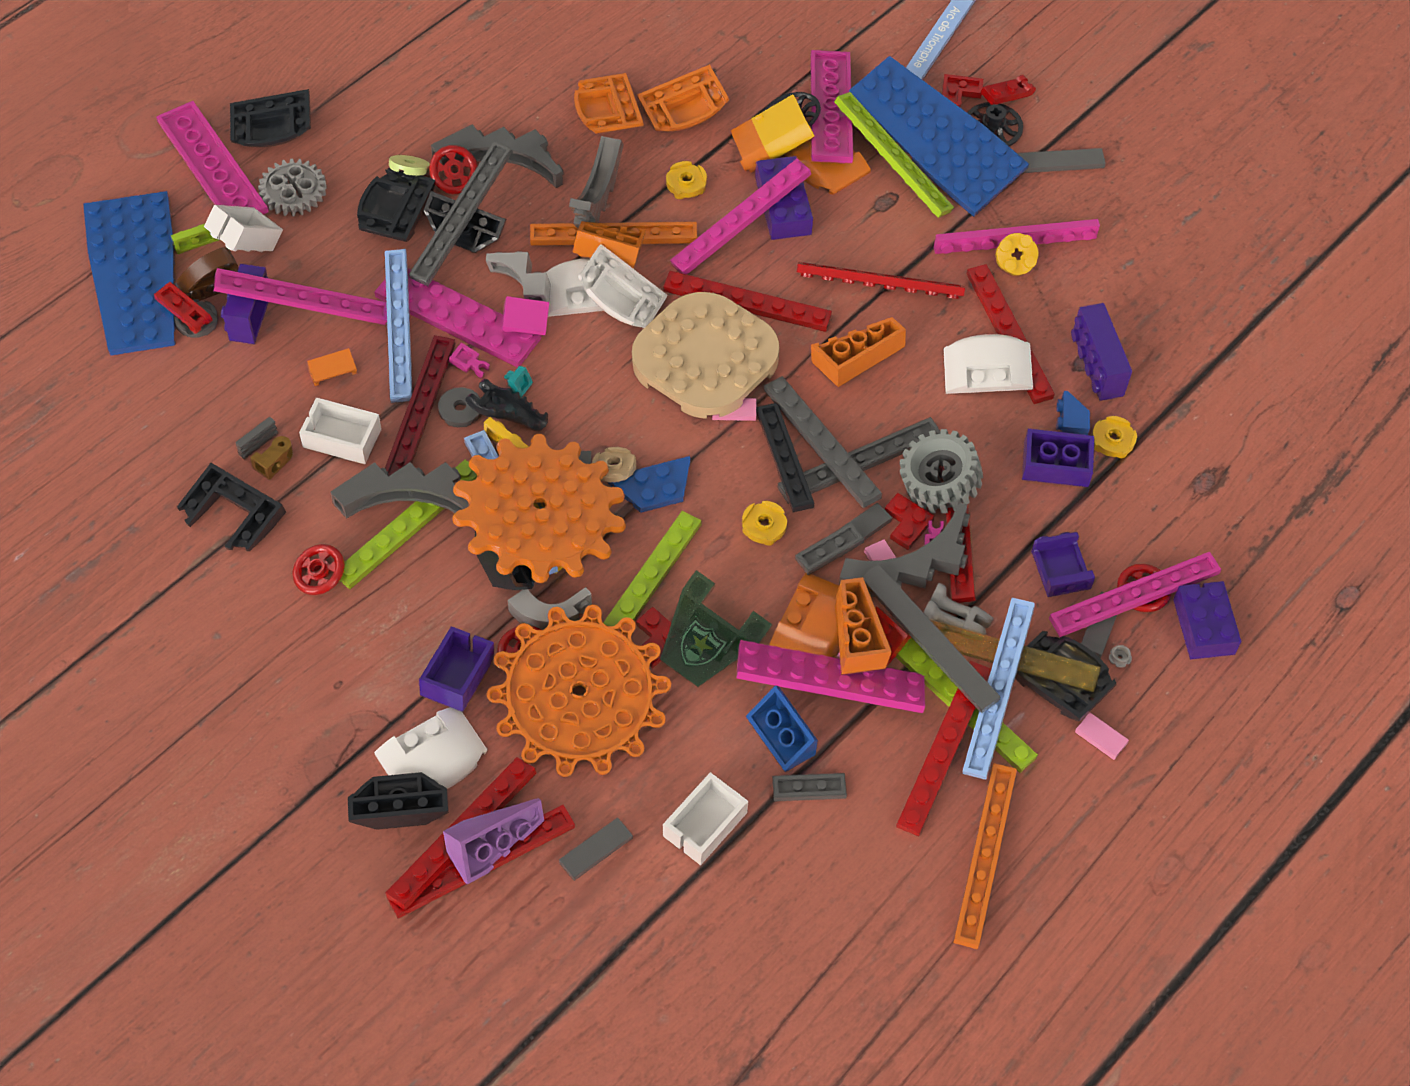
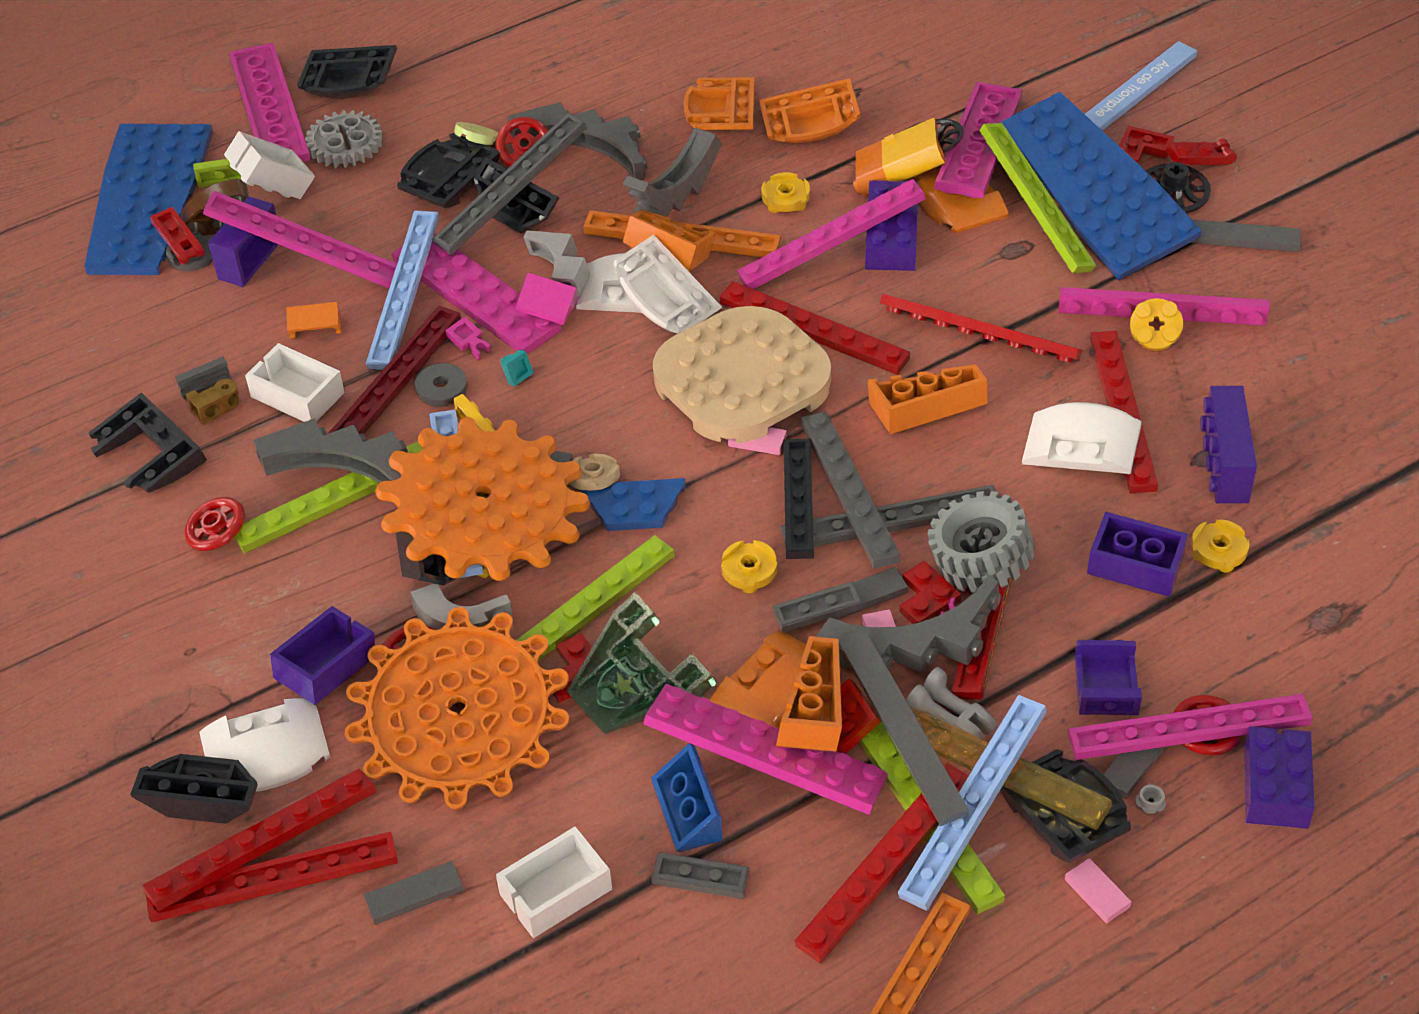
camera: 20 degrees right, 10 degrees down
(485, 838) = (279, 848): medium lavender wedge -> none
(507, 405) = (491, 389): black animal -> none
(1073, 415) = (1173, 509): blue slope -> none

